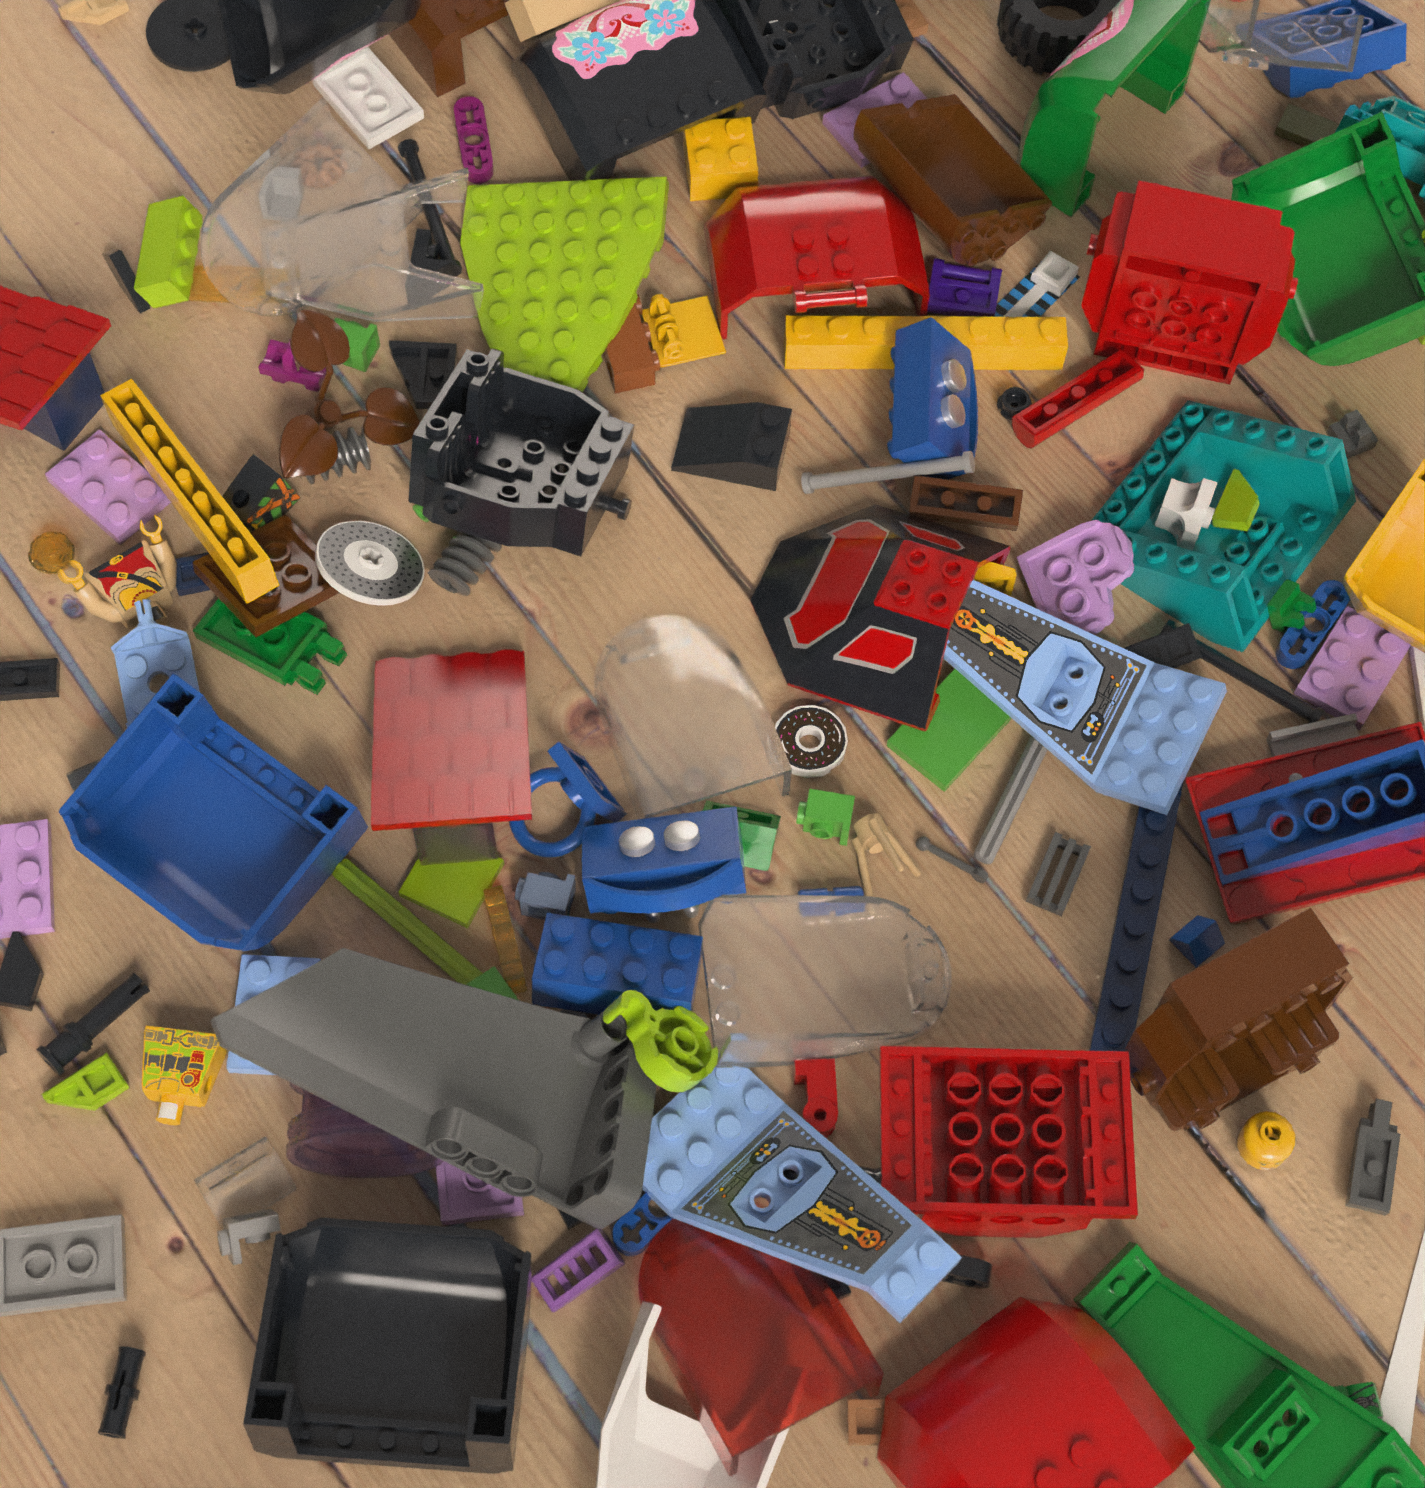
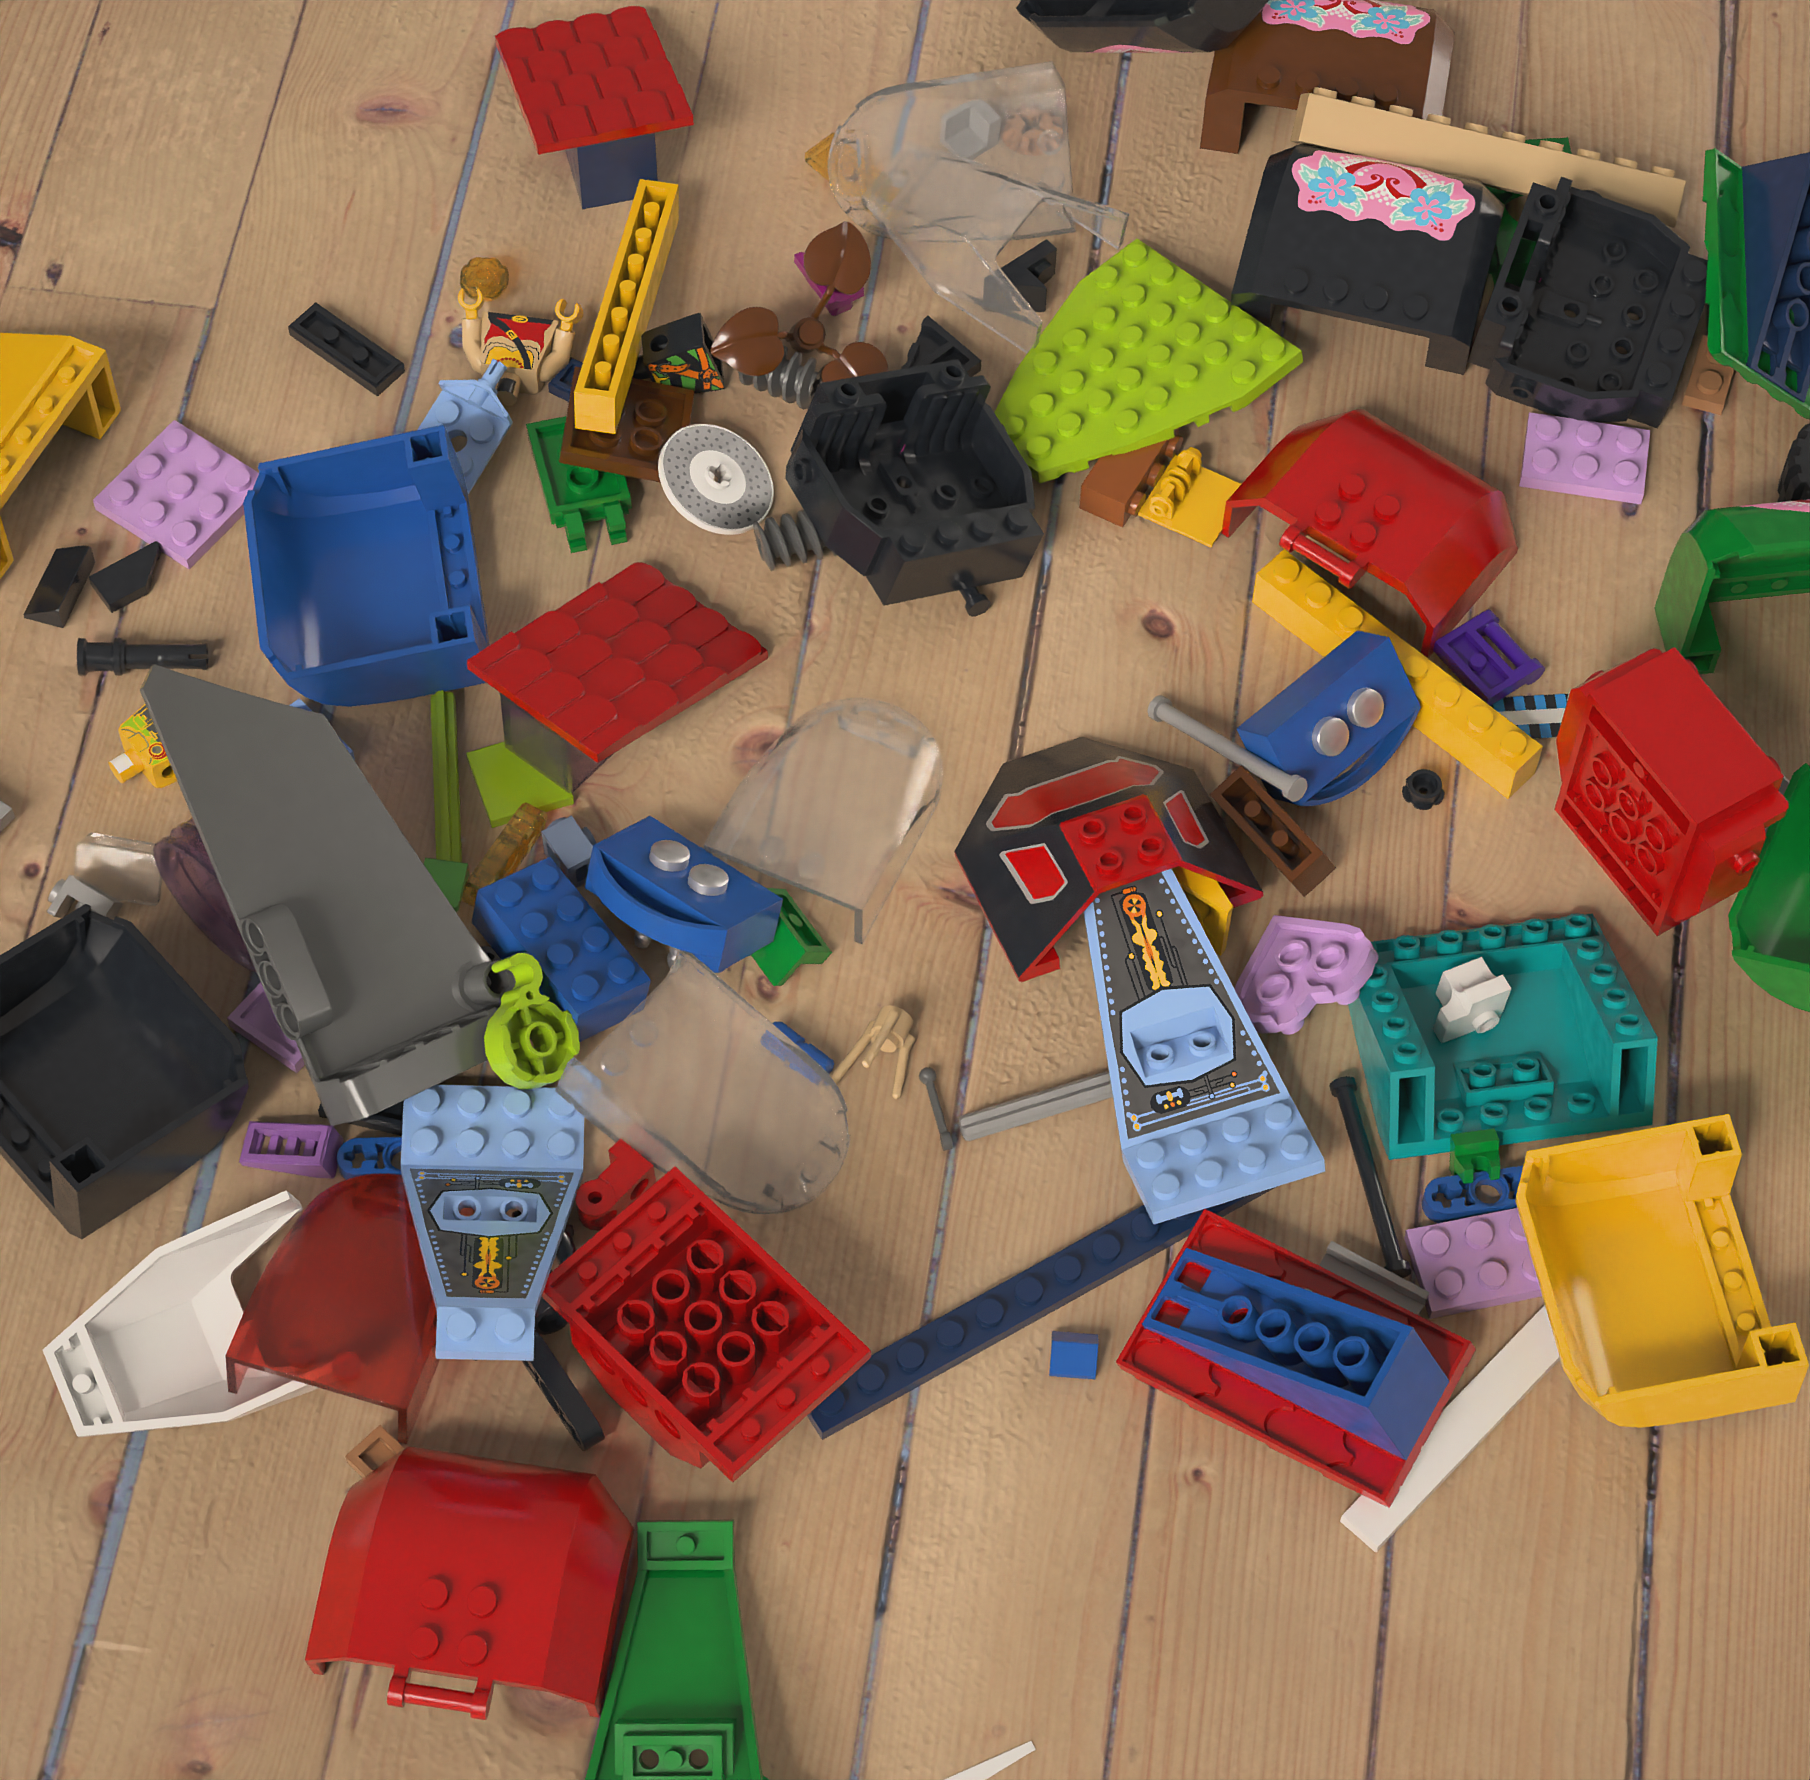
camera: 45 degrees right, 5 degrees down
(89, 1086) = (93, 701): lime tile -> none
(108, 486) = (580, 258): lavender plate -> none
(125, 278) = (770, 106): black tile -> none
(168, 252) = (816, 111): lime brick -> none
(362, 342) = (896, 295): bright green brick -> none
(368, 98) = (1133, 103): white plate -> none
(409, 150) = (1122, 173): black bar -> none
(478, 128) = (1188, 220): magenta beam -> none
(585, 791) = (690, 789): blue tile -> none
(719, 157) = (1386, 376): yellow brick -> none
(734, 443) = (1132, 628): black slope -> none
(821, 724) = (923, 893): tile -> none
(826, 814) = (867, 981): bright green brick -> none
(952, 176) = (1575, 547): reddish brown cylinder -> none
(956, 734) = (1046, 1010): bright green tile -> none
(1069, 846) = (1008, 1182): dark grey tile -> none
(1076, 398) = (1486, 829): red brick -> none
(1169, 648) = (1324, 1100): black tile -> none
(1236, 505) = (1529, 1033): lime tile -> none
(1239, 1023) = (1000, 1418): reddish brown piece -> none
(1266, 1140) = (938, 1549): yellow head -> none
(1354, 432) = (1721, 1069): dark grey tile -> none
(1374, 1161) = (1017, 1654): dark grey hinge -> none

